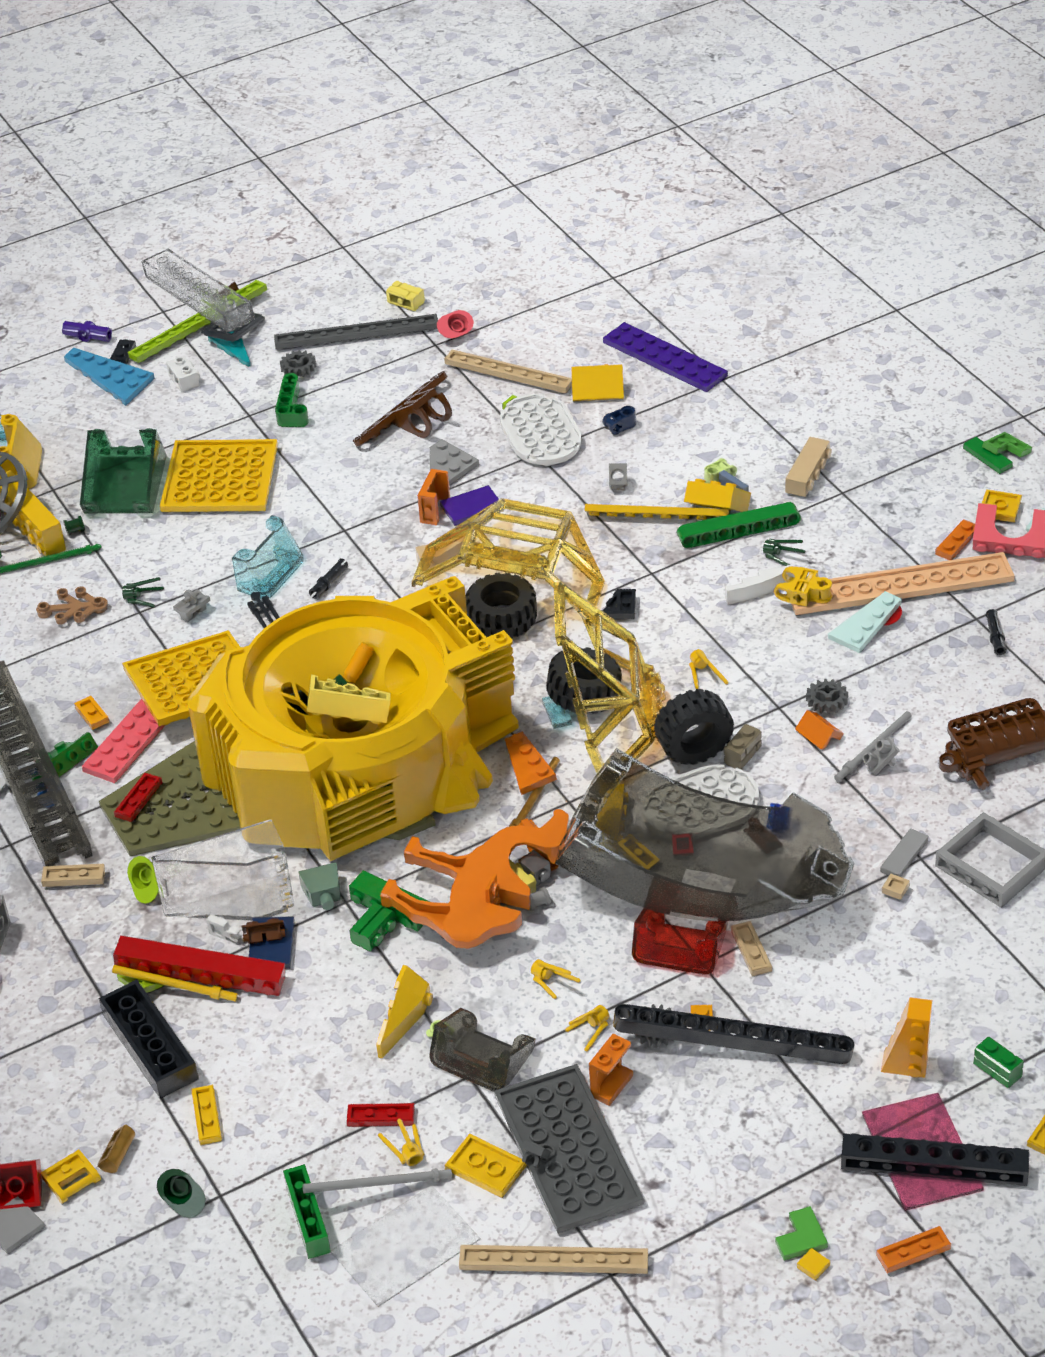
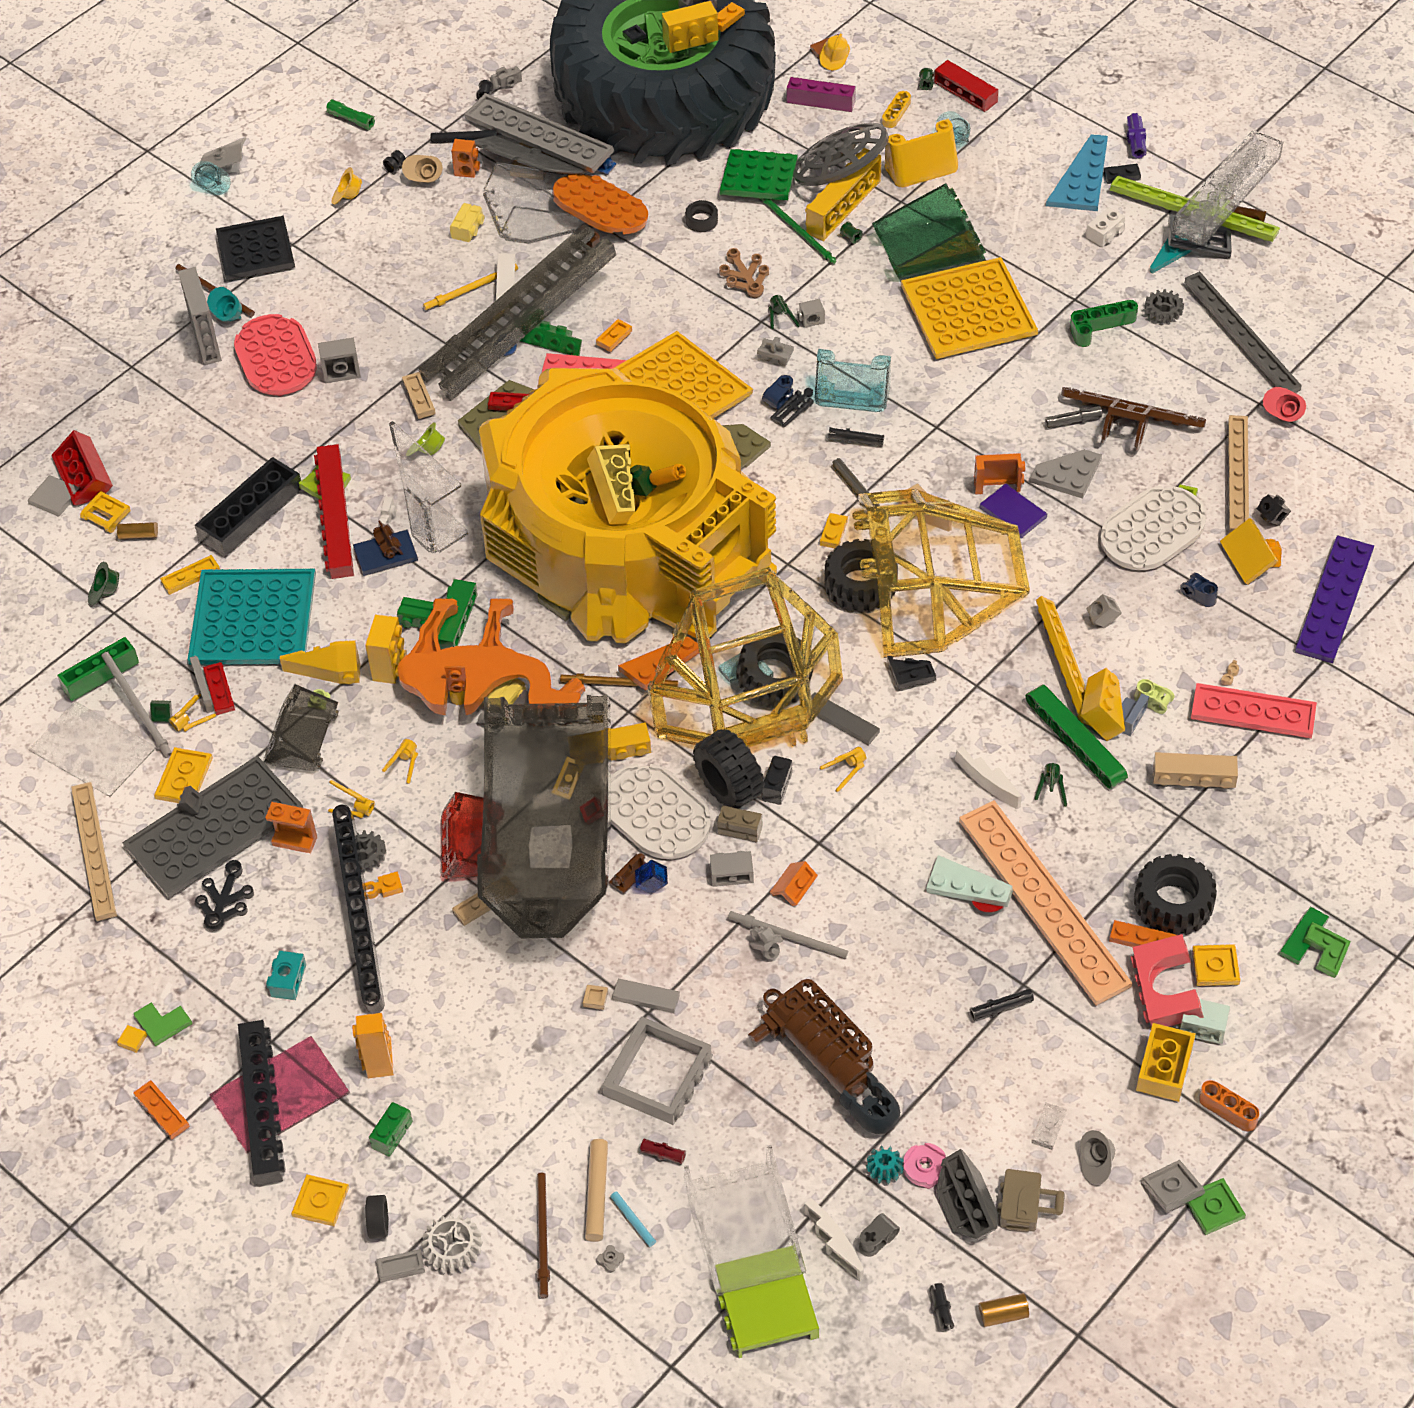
camera: 70 degrees right, 10 degrees up
(159, 568) = (811, 313): none -> light grey brick
(214, 992) = (317, 531): yellow bar -> none
(244, 613) = (779, 391): none -> dark blue piece
(298, 1067) = (251, 615): none -> teal plate
(321, 885) = (457, 563): sand green torso -> none
(370, 1124) = (202, 684): none -> light grey tile
(389, 444) = (1072, 417): none -> dark grey pin
(390, 1164) = (160, 710): none -> dark green tile
(392, 591) = (850, 478): none -> dark grey axle
(405, 295) = (1320, 351): light yellow brick -> none
(420, 947) = (385, 648): none -> yellow brick
(565, 357) = (1273, 509): none -> black brick
(658, 657) = (848, 722): none -> dark grey tile
(663, 1156) = (224, 899): none -> black plant
(709, 427) = (1233, 670): none -> tan piece
(758, 424) = (1254, 710): none -> coral plate
(785, 1114) = (286, 986): none -> teal brick
(788, 764) = (731, 868): none -> light grey brick
(804, 587) = (988, 813): yellow piece -> none
(827, 696) = (840, 875): dark grey gear -> none
(928, 505) = (1181, 873): none -> black tyre

